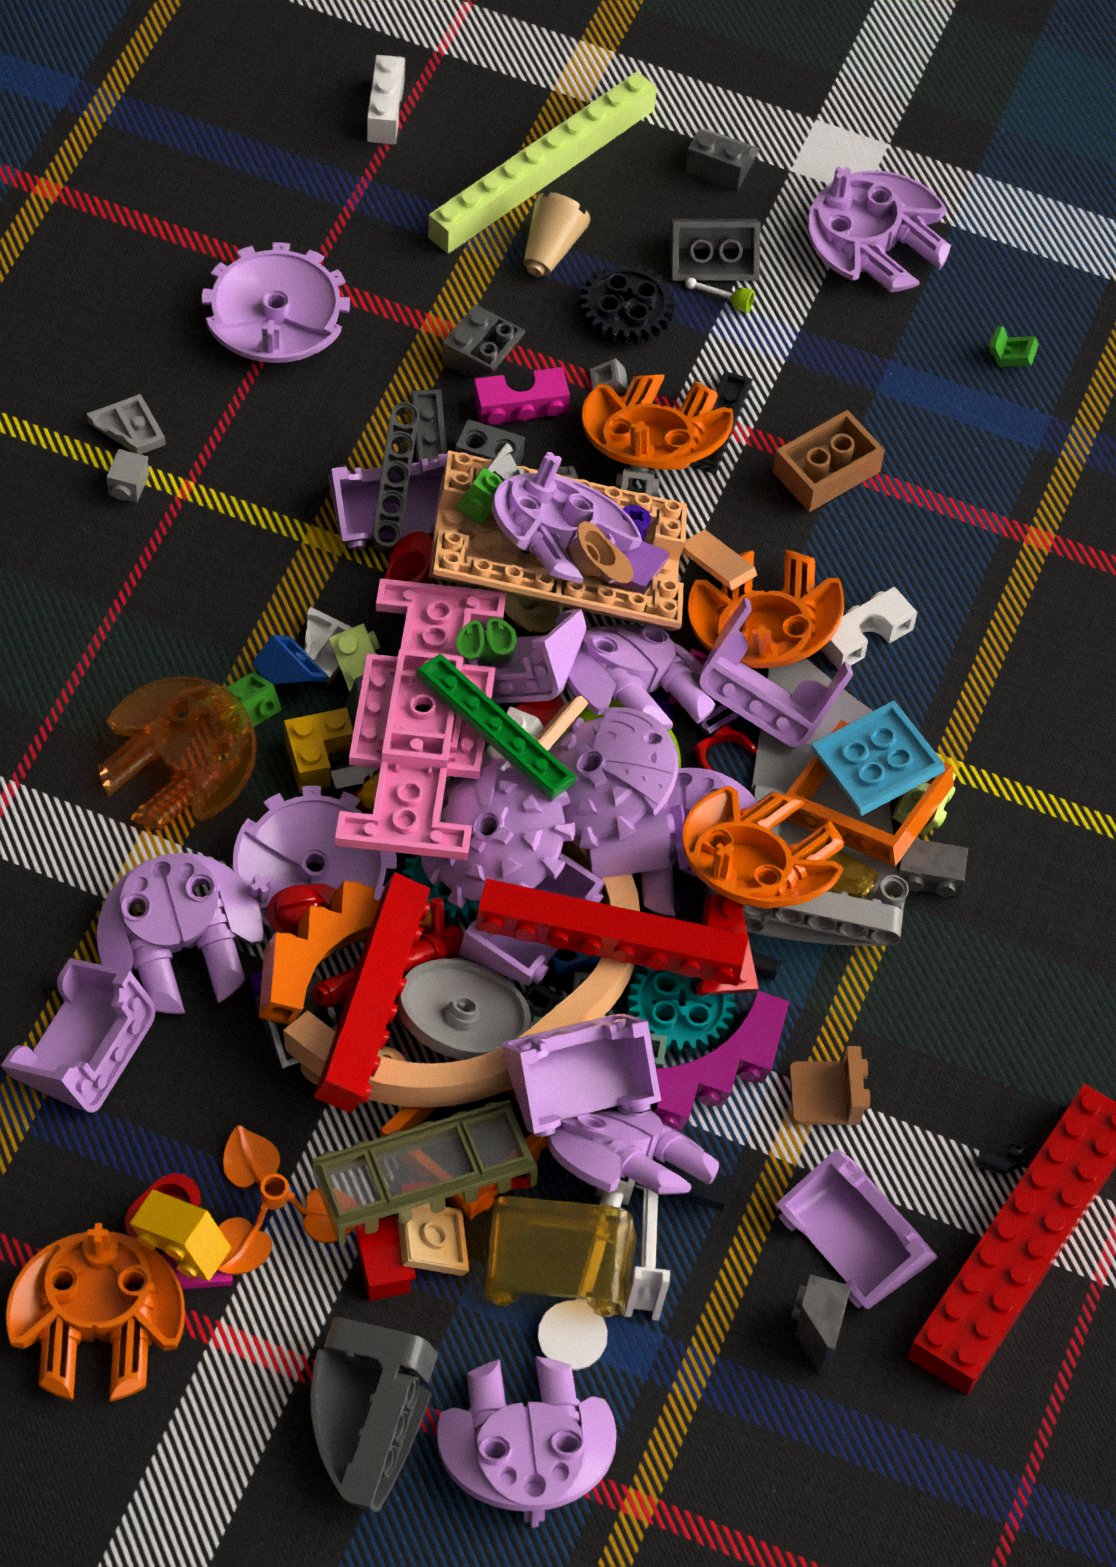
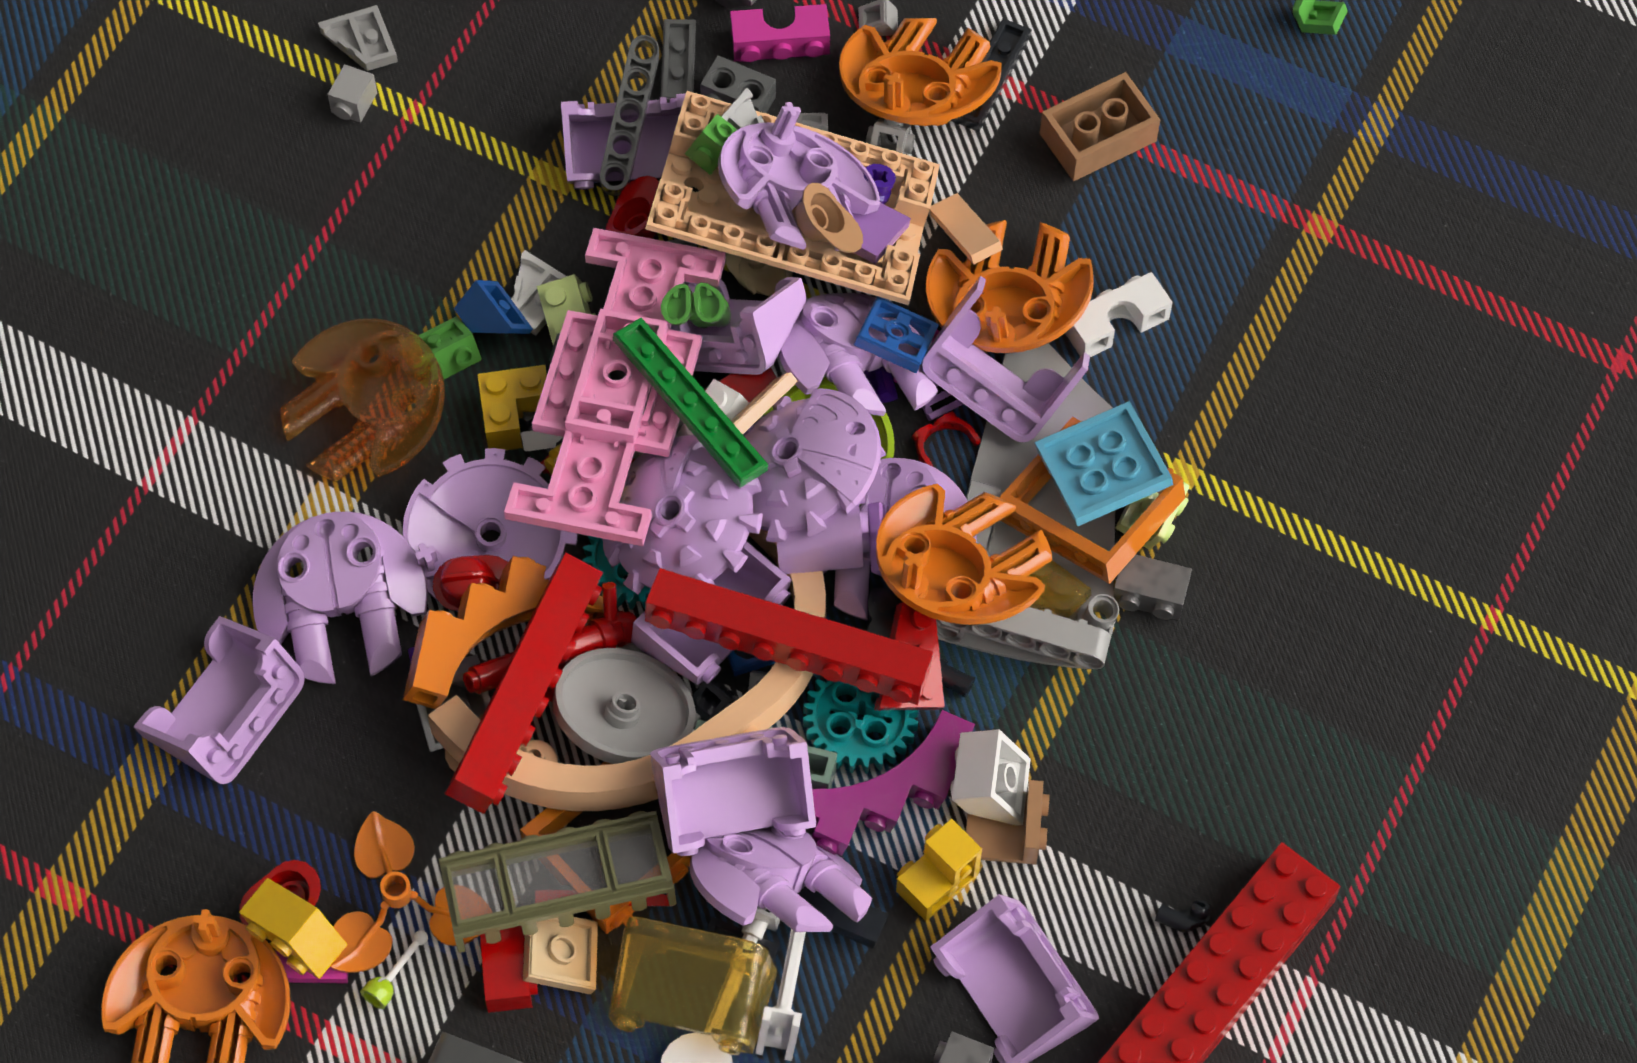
camera: 10 degrees right, 5 degrees up
(265, 1288) = (379, 989): none -> hinge
(677, 643) = (889, 349): none -> blue piece
(777, 1135) = (944, 870): none -> yellow brick
(810, 1046) = (991, 776): none -> white slope

